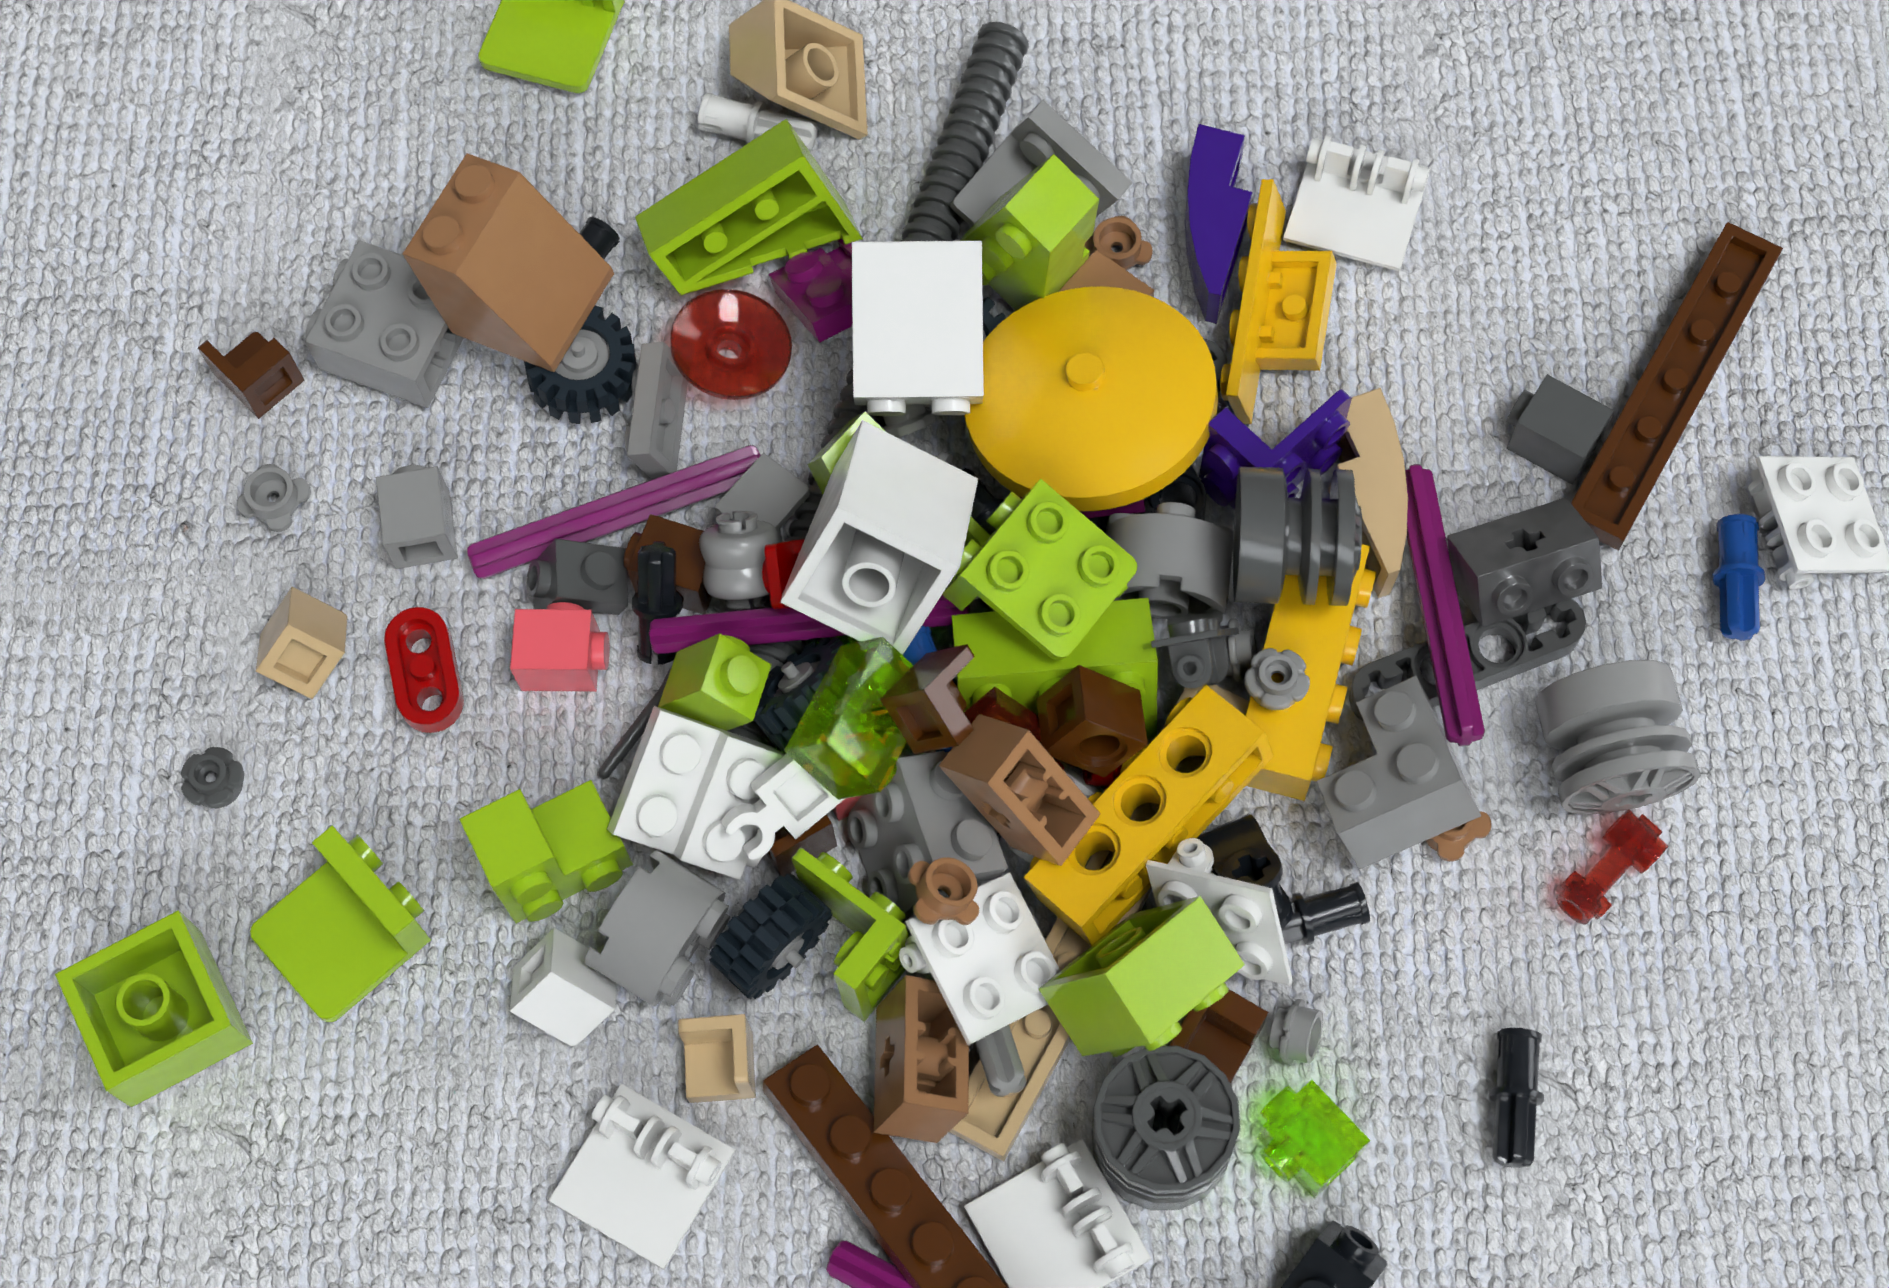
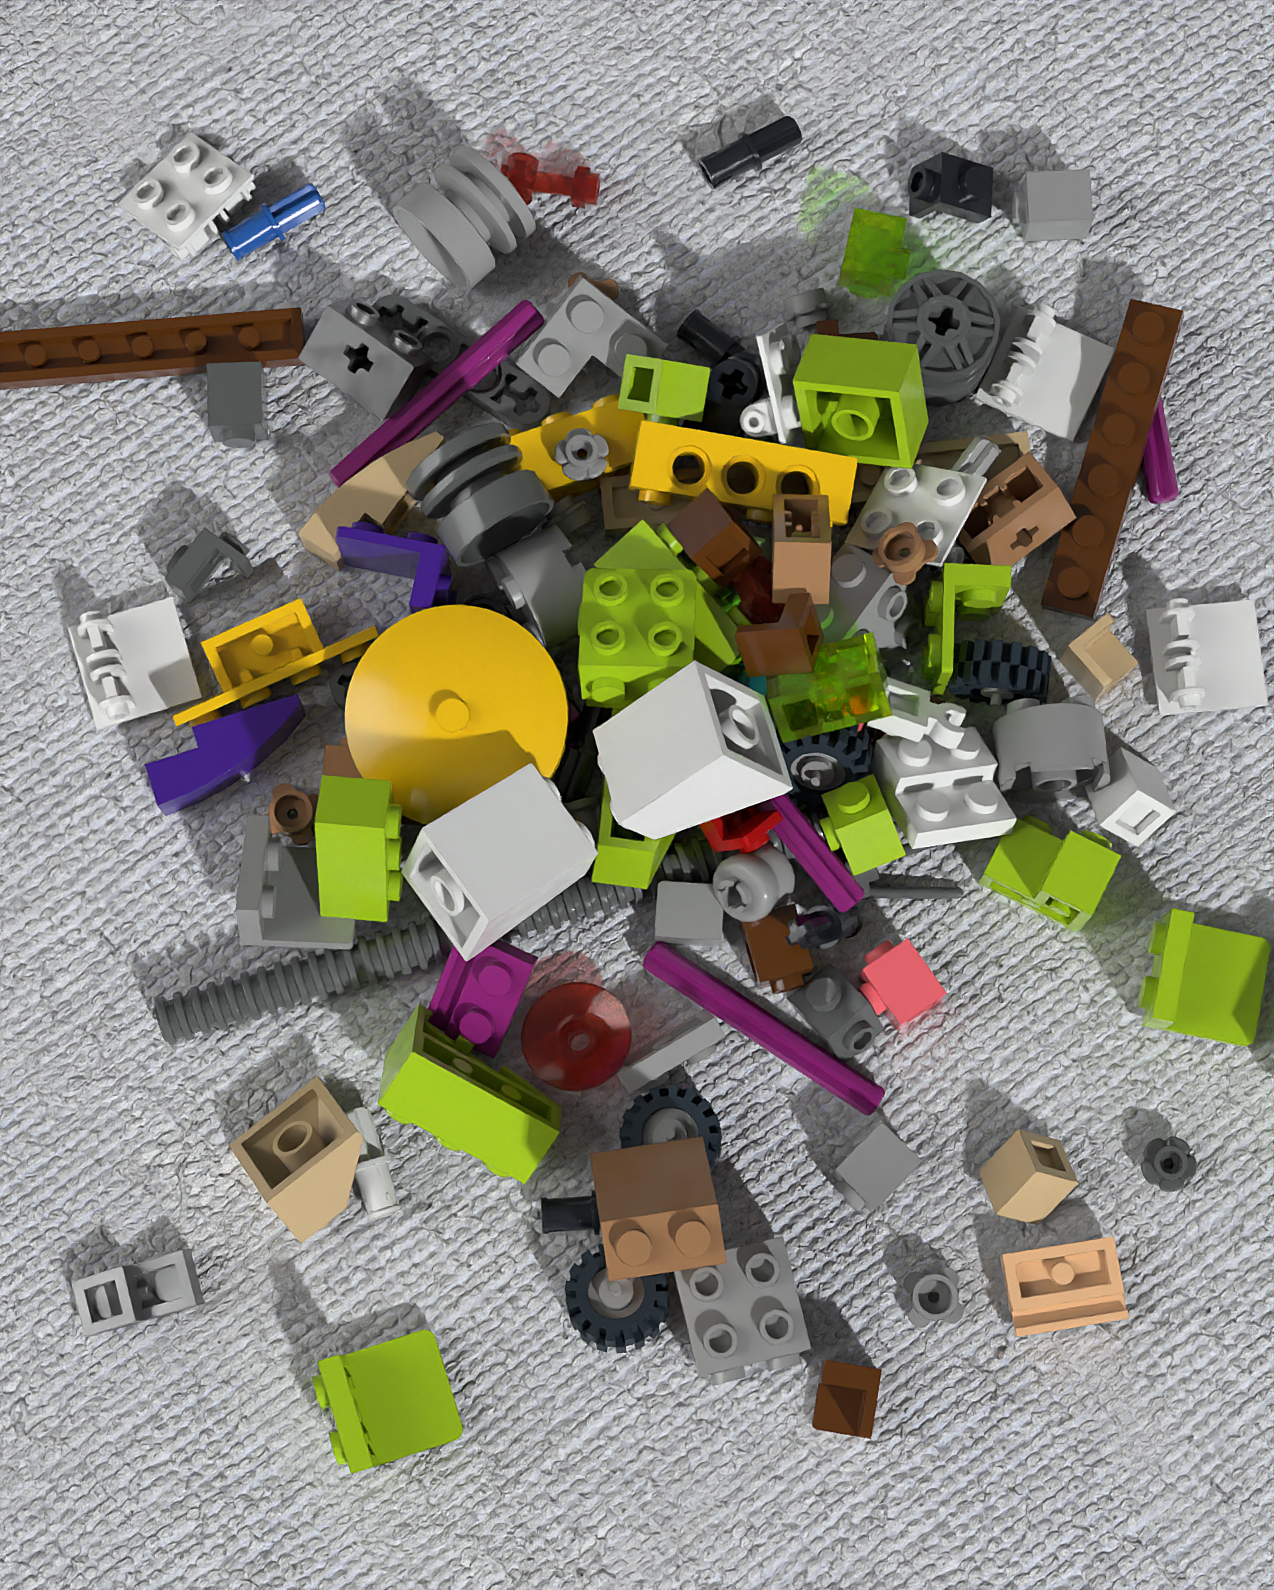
camera: 130 degrees left, 10 degrees up
(187, 608) = (1064, 1286): none -> light nougat plate
(424, 673) = (981, 1072): red plate -> none
(1197, 651) = (604, 512): dark grey hinge -> none
(1289, 792) = (663, 389): none -> lime brick
(1417, 304) = (195, 565): none -> dark grey bracket

